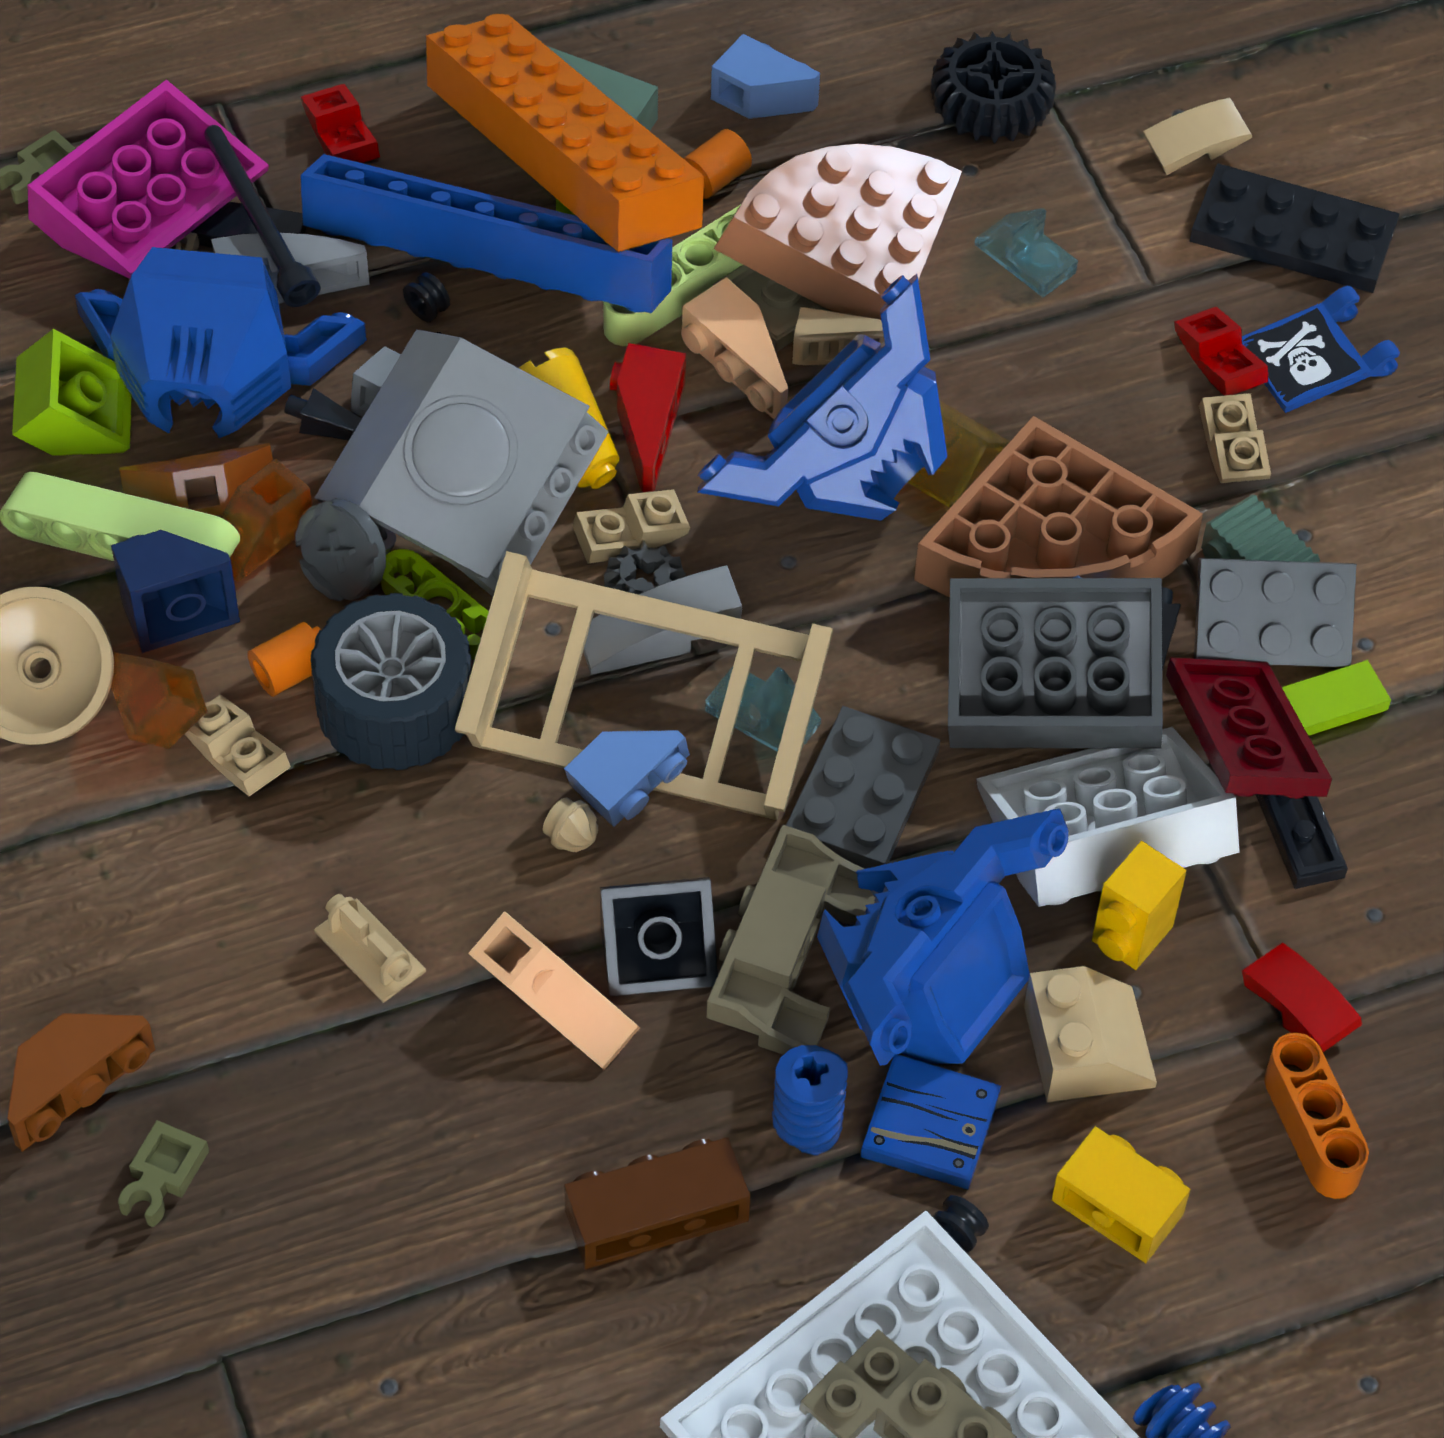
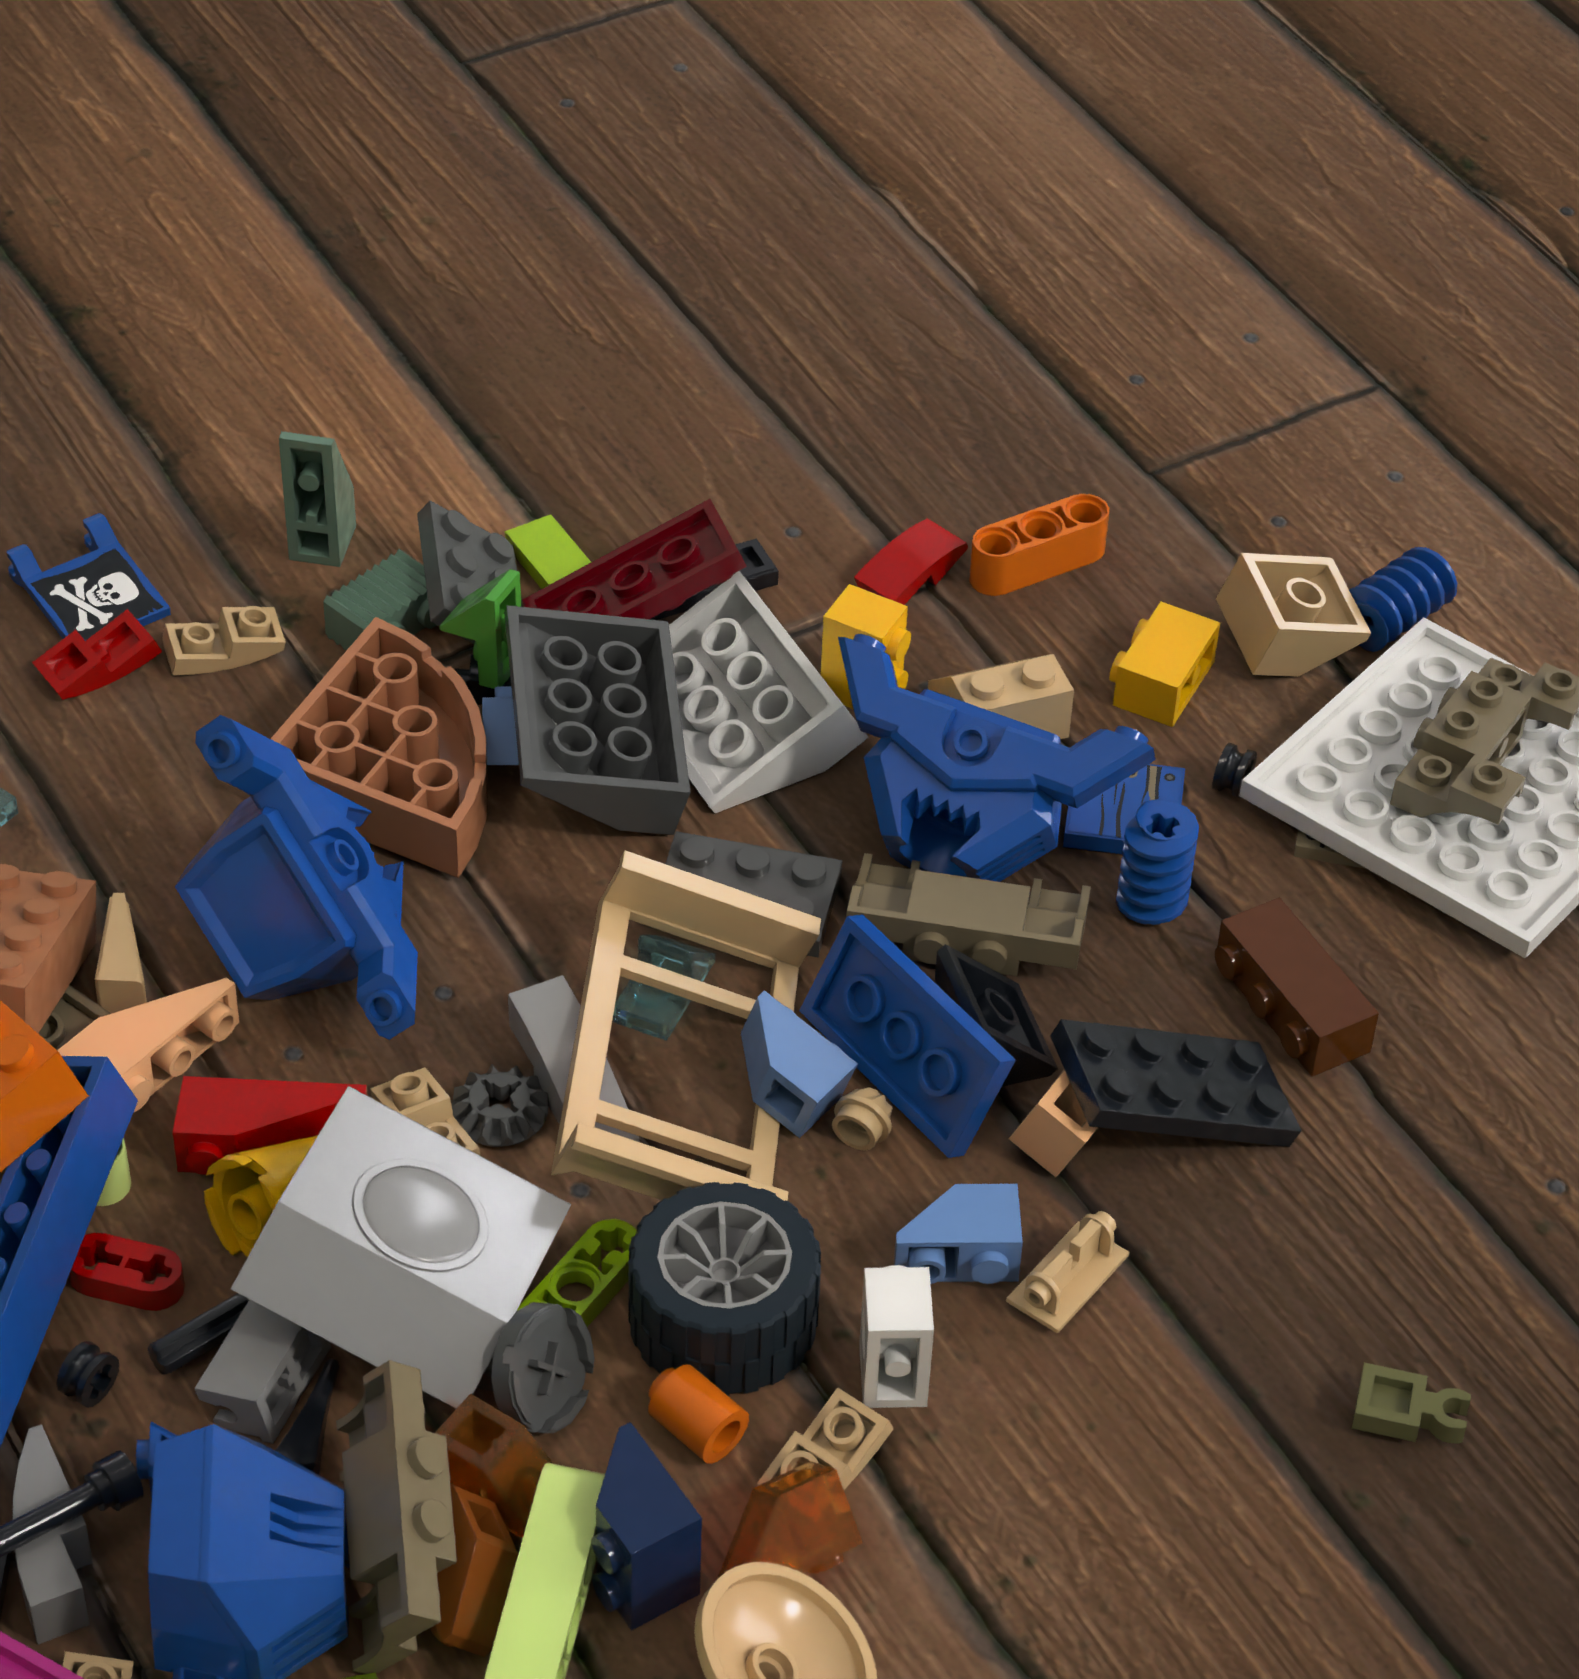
camera: 100 degrees left, 10 degrees down
(70, 1068) = (1321, 1517): dark orange slope -> none
(210, 423) = (395, 1514): none -> dark tan bracket
(308, 784) = (896, 1336): none -> white brick
(420, 875) = (966, 1235): none -> medium blue slope
(517, 326) = (125, 1271): none -> red beam
(533, 1051) = (1174, 1083): none -> black plate
(650, 848) = (907, 1036): none -> blue plate
(1176, 1324) = (1290, 612): none -> tan slope
(1181, 587) = (482, 619): none -> bright green slope
(1386, 495) = (316, 499): none -> sand green slope

